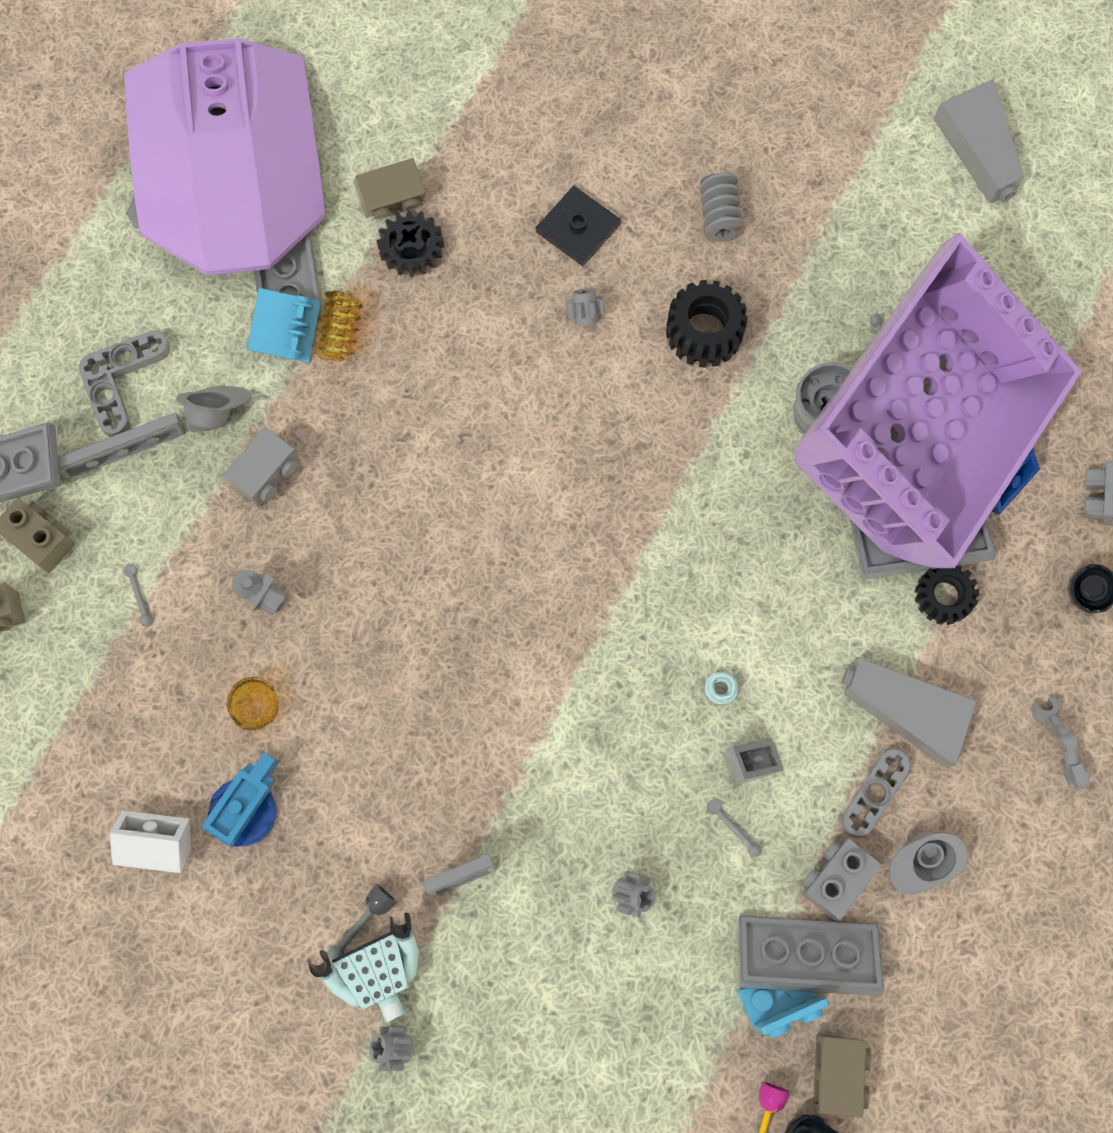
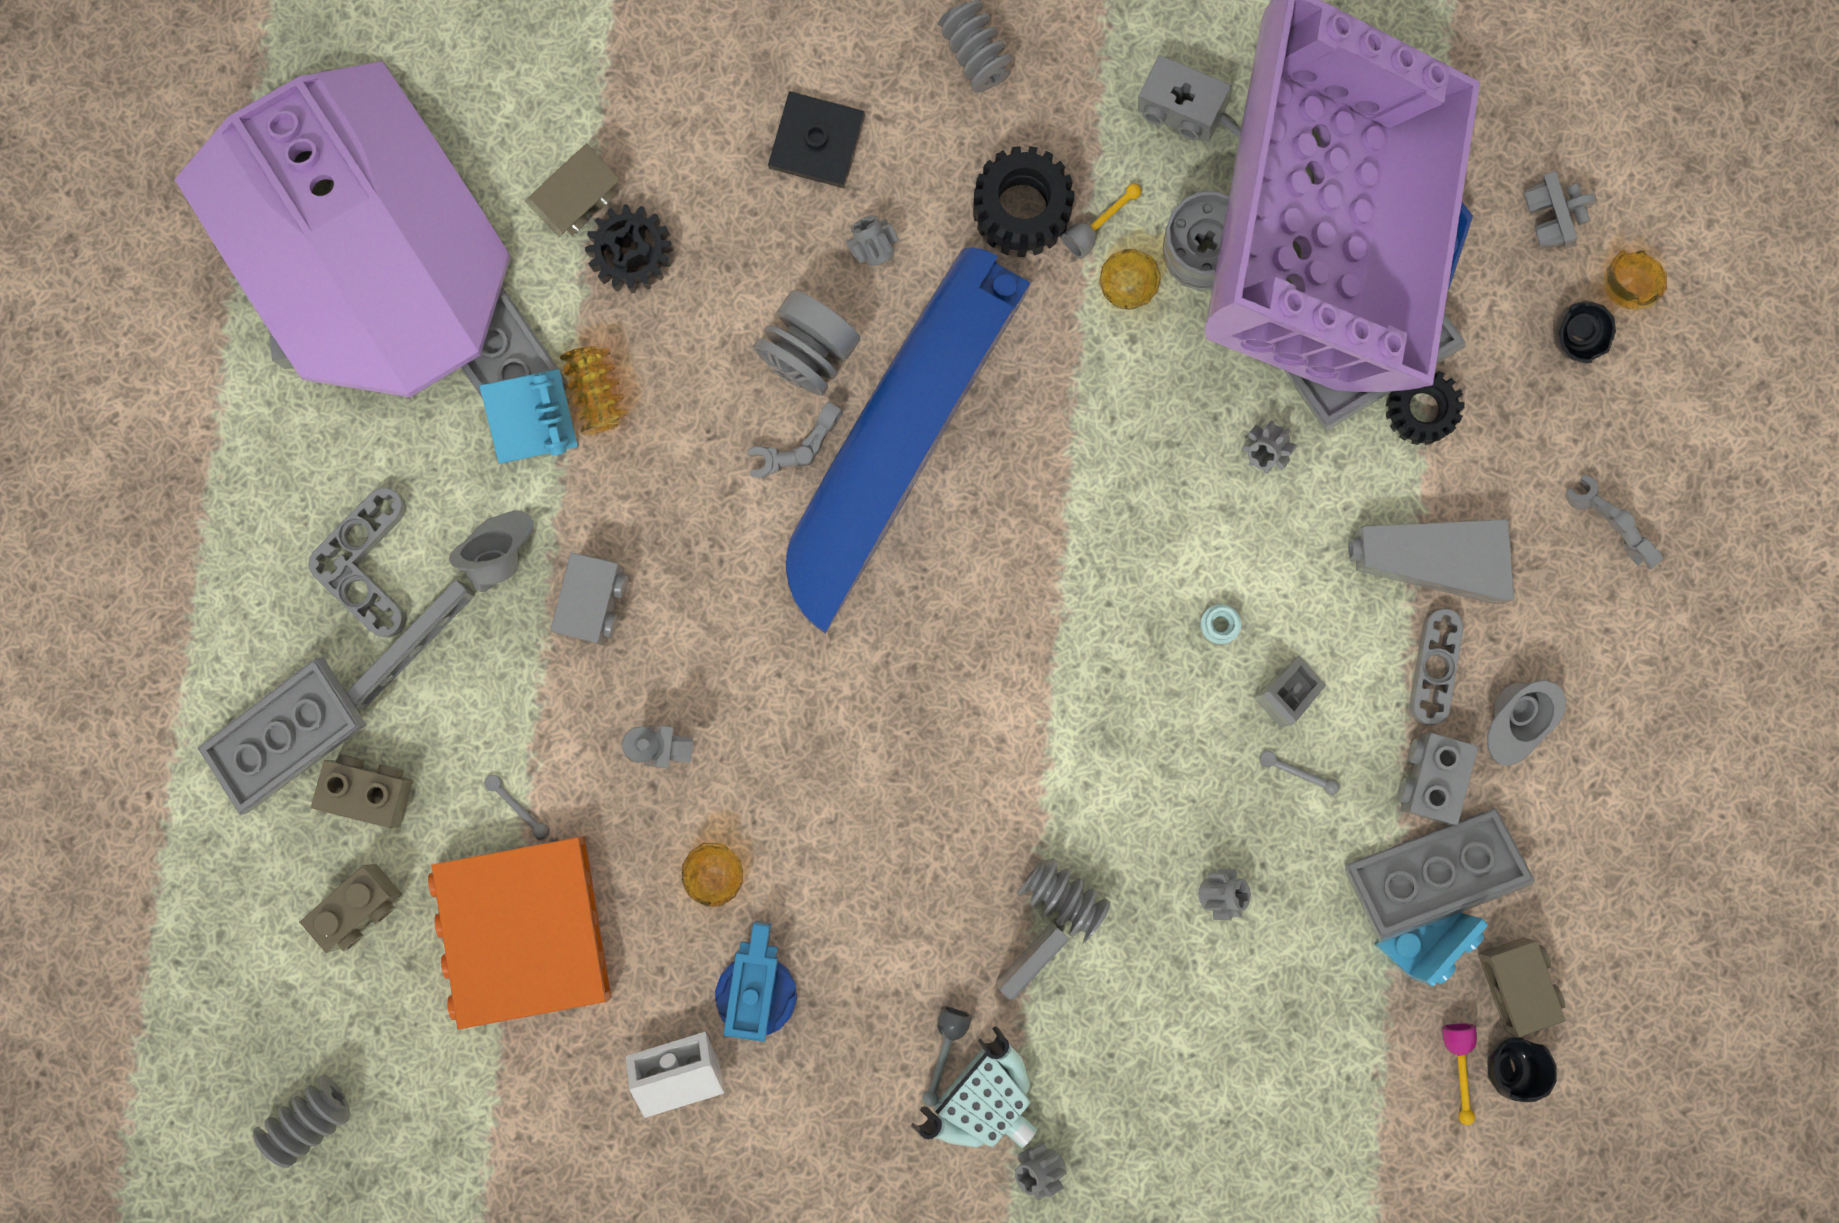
camera: 25 degrees left, 10 degrees up
(93, 684) = (519, 933): none -> orange panel
(466, 435) = (800, 456): none -> light grey piece
(507, 841) = (1065, 898): none -> light grey piece
(508, 352) = (810, 337): none -> light grey wheel
(541, 446) = (899, 432): none -> blue slope
(738, 366) = (1081, 237): none -> hinge
(764, 403) = (1128, 269): none -> clear yellow hair
(814, 571) = (1269, 447): none -> light grey gear
(856, 301) = (1170, 85): none -> light grey brick

